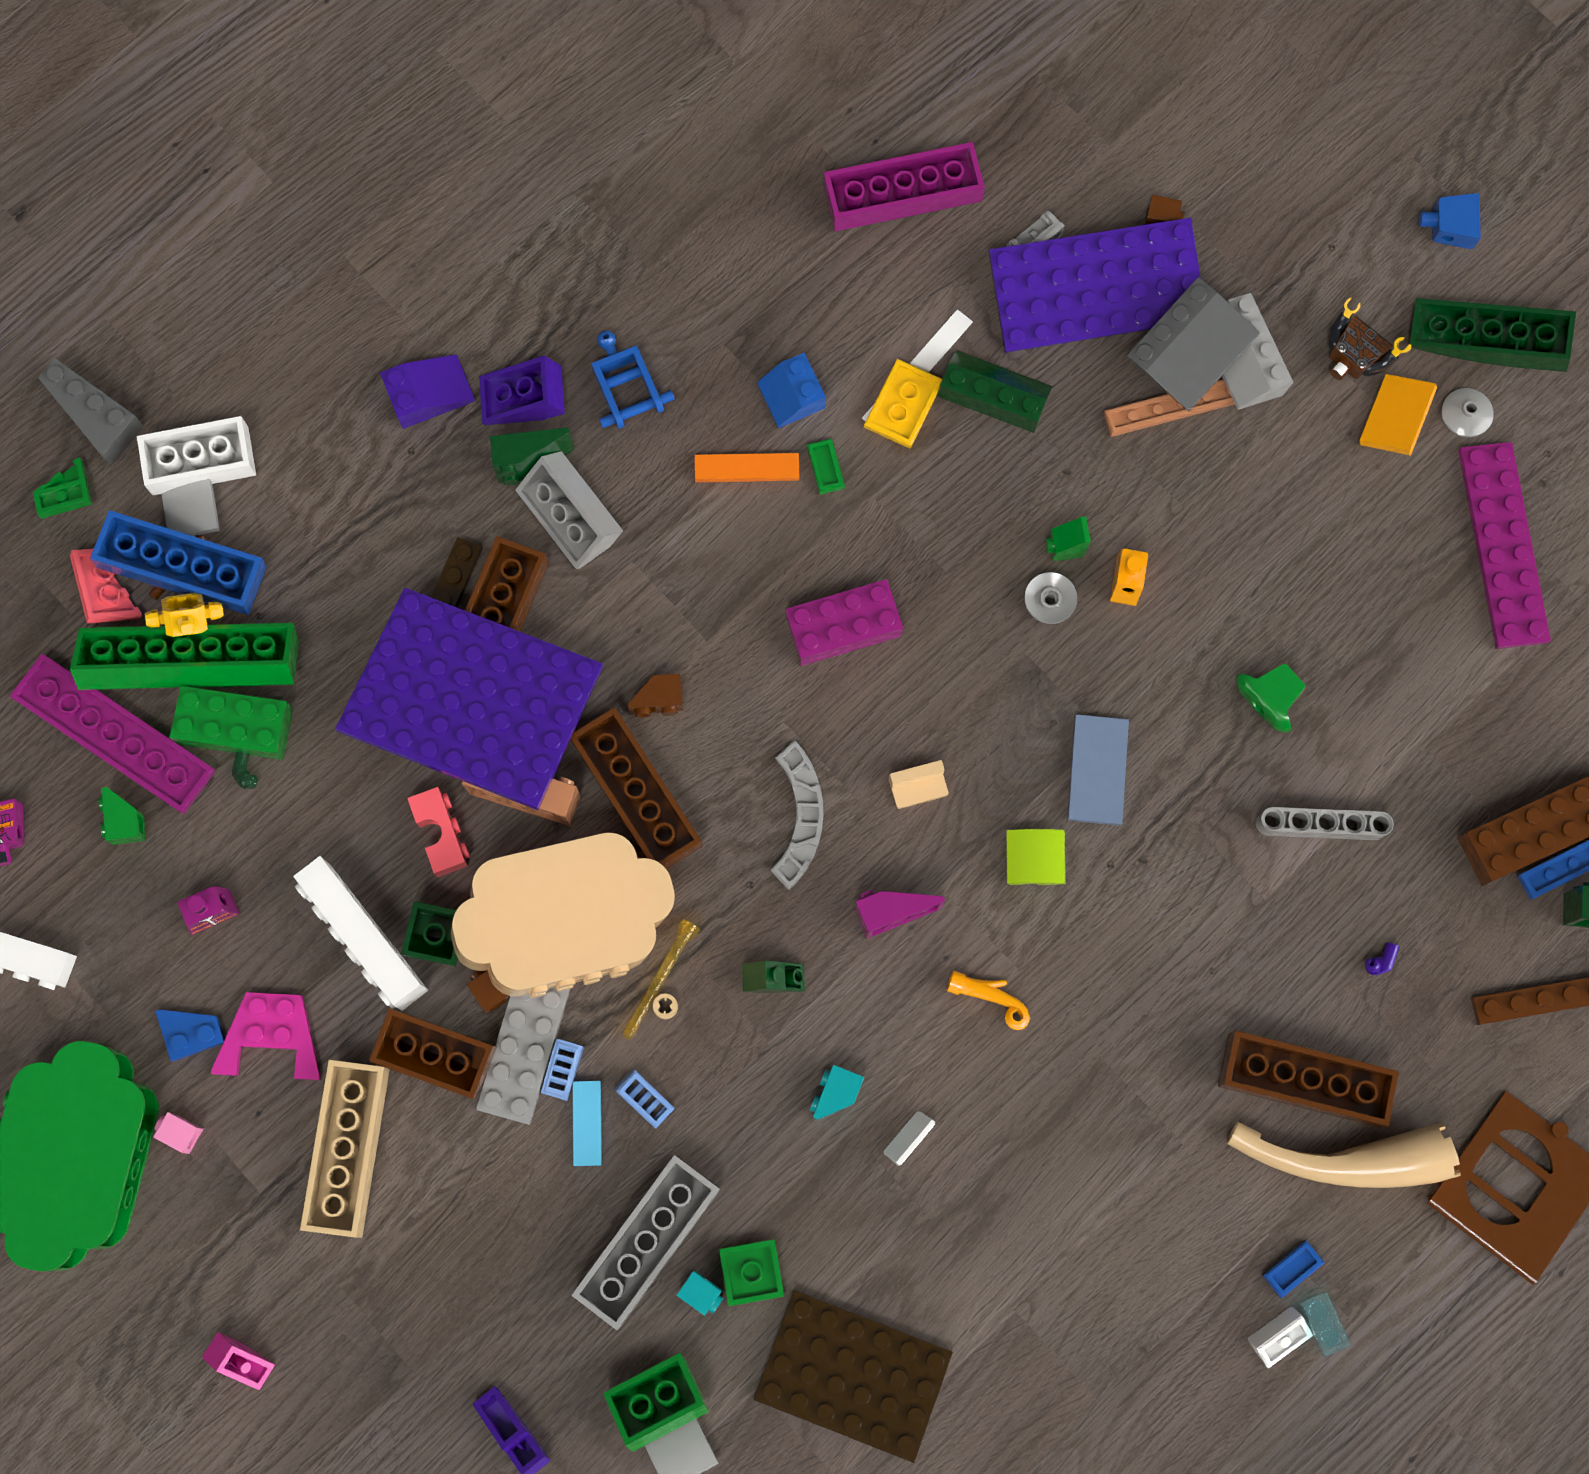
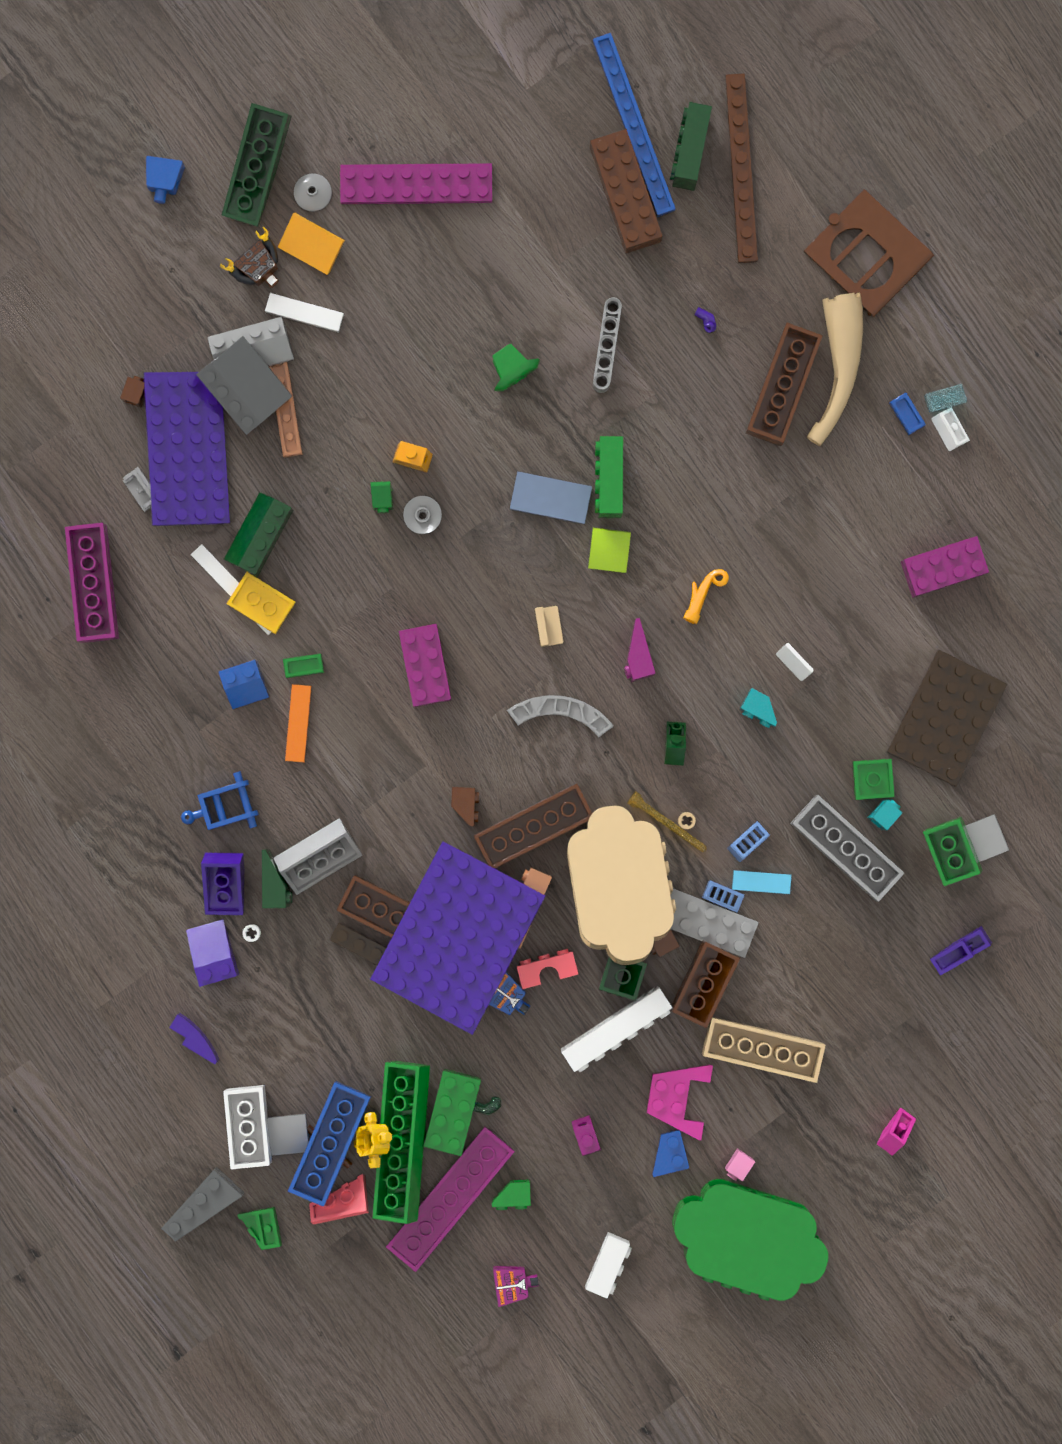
camera: 85 degrees left, 10 degrees up
(311, 378) = (194, 1038): none -> dark purple slope
(398, 780) = (509, 996): none -> torso
(466, 438) = (254, 927): none -> white bush
(1076, 1348) = (944, 566): none -> magenta brick
(1139, 844) = (610, 473): none -> green brick
(1303, 418) = (304, 312): none -> white tile

